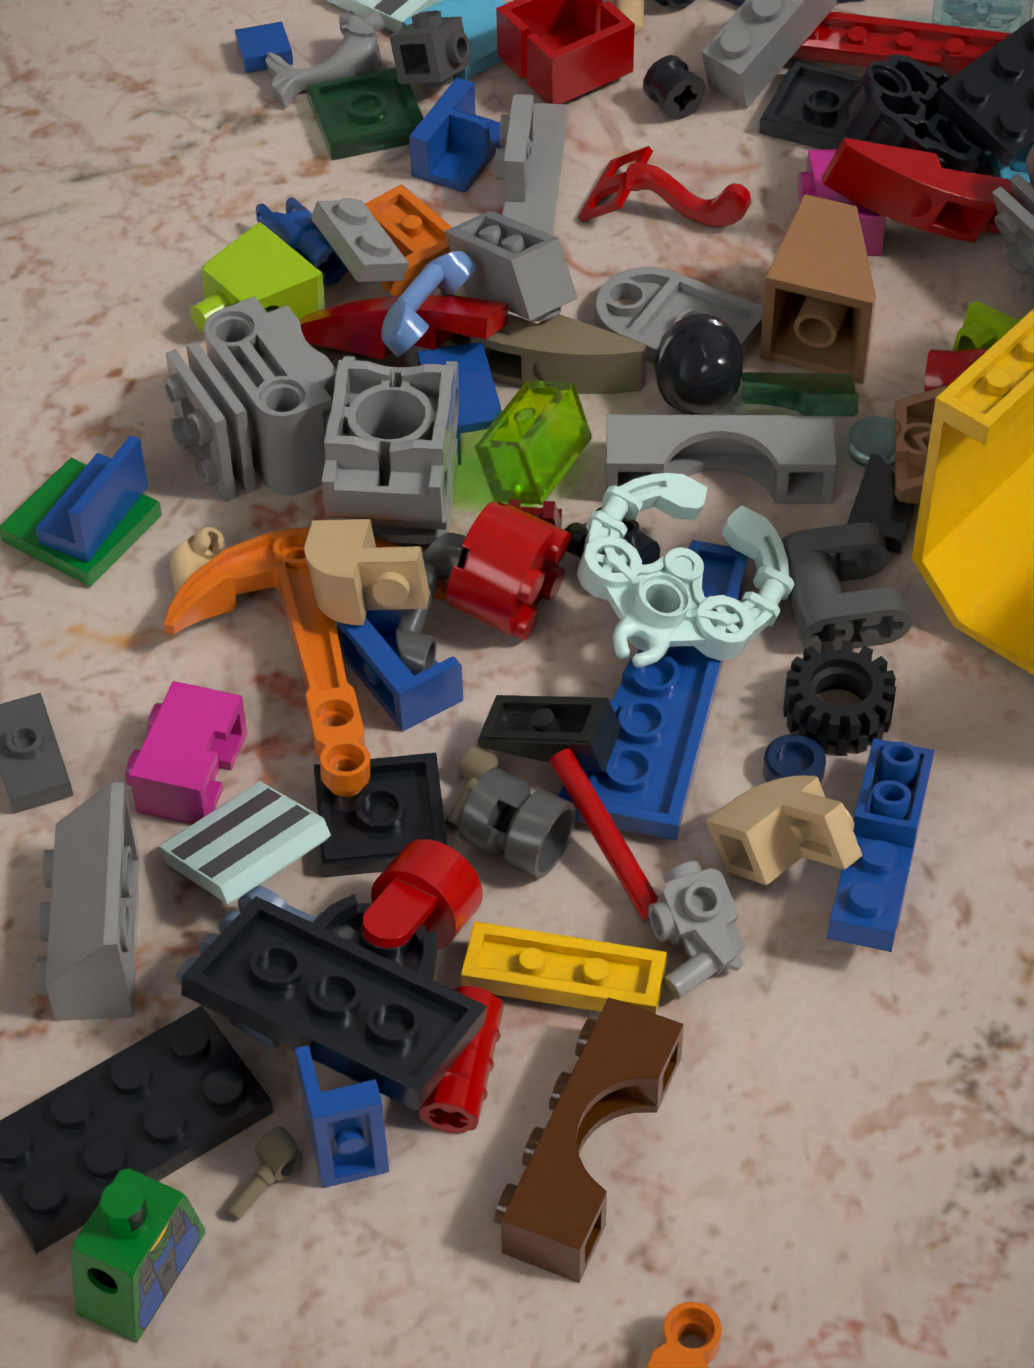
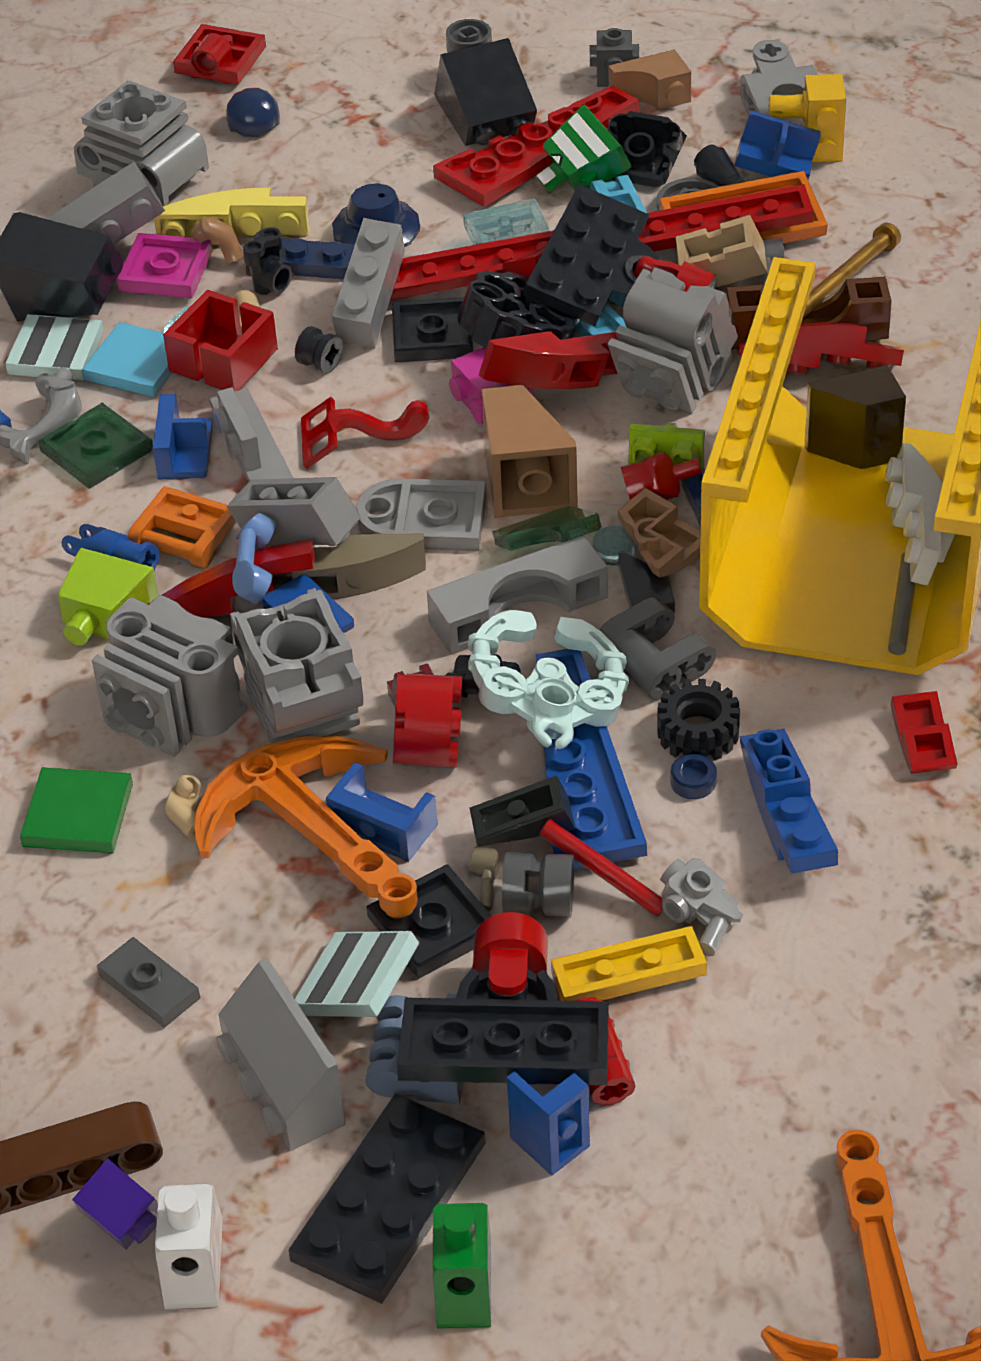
camera: 25 degrees left, 5 degrees down
(95, 502) = (87, 790): blue panel -> none
(184, 749) = (272, 929): dark pink brick -> none
(281, 1163) = (512, 1164): dark tan hand -> none
(358, 577) = (325, 765): tan brick -> none
(359, 240) = (165, 535): light grey plate -> none
(417, 649) = (375, 733): dark grey bar -> none
(430, 49) = (125, 381): dark grey brick -> none
(533, 442) = (384, 629): clear neon green brick -> none
(620, 1071) = (724, 1110): reddish brown arch -> none
(699, 364) = (468, 534): black hat -> none
(780, 824) = (717, 812): tan brick -> none

